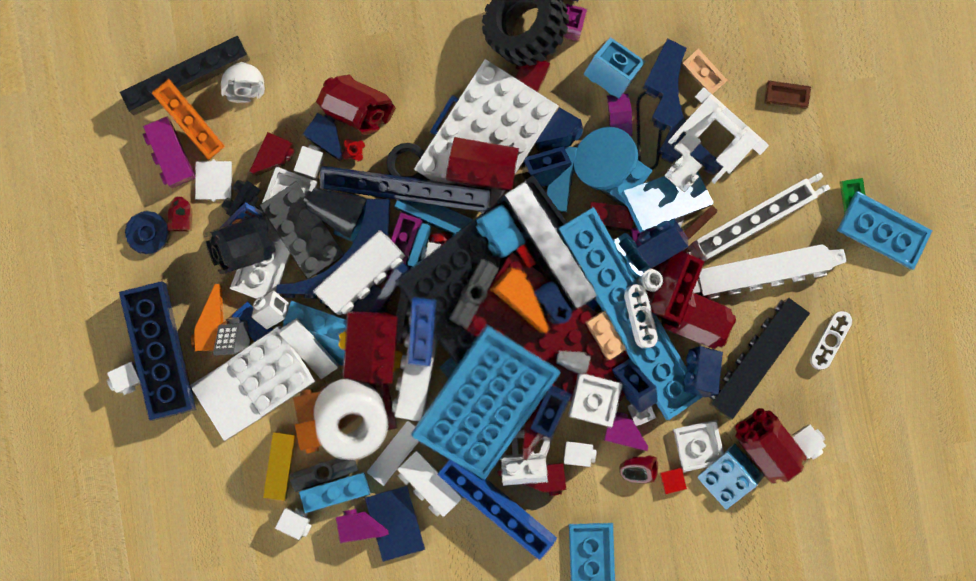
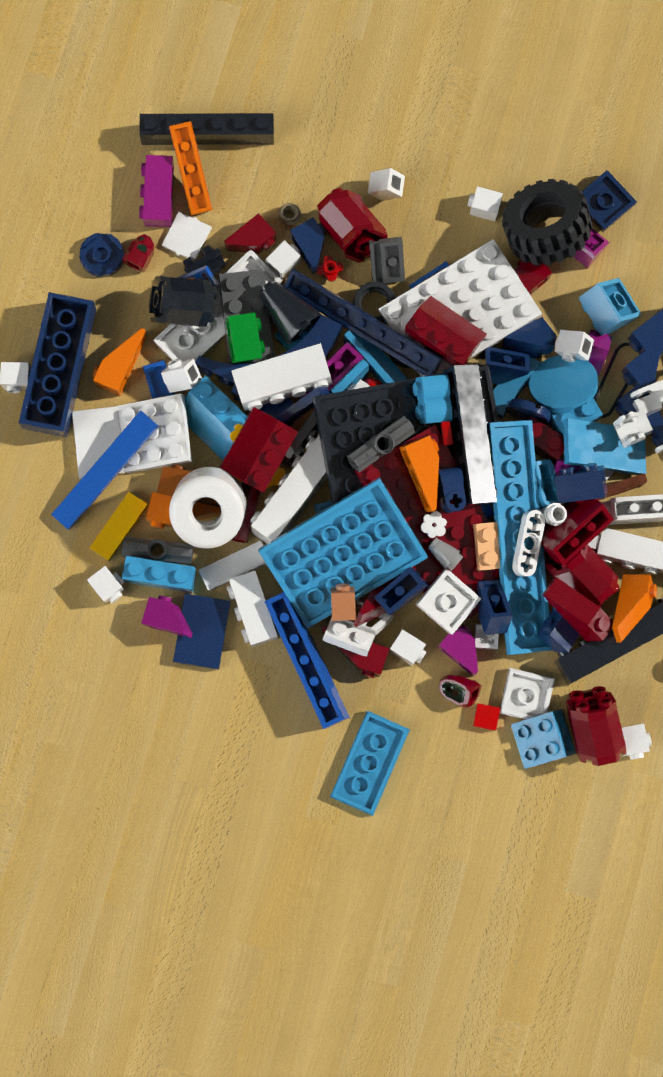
camera: 15 degrees right, 5 degrees down
(232, 337) = (134, 383): dark grey slope -> none
(242, 82) = (256, 159): white cylinder -> none
(244, 424) = (105, 470): none -> blue tile
(291, 111) = (289, 207): none -> dark tan plate
(308, 348) = (200, 428): white tile -> none
(309, 251) = (244, 337): none -> green brick
(367, 51) = (386, 184): none -> white brick
(400, 120) = (387, 260): none -> dark grey plate
(421, 332) = (314, 456): blue tile -> none
(462, 26) = (485, 203): none -> white brick
(505, 445) = (343, 602): none -> nougat brick
(557, 343) = (436, 518): none -> white plant
(586, 198) = (525, 409): none -> dark blue tile
(599, 121) = (573, 345): none -> white brick
(710, 355) = (578, 611): none -> dark red slope
(754, 325) = (633, 603): none -> orange slope

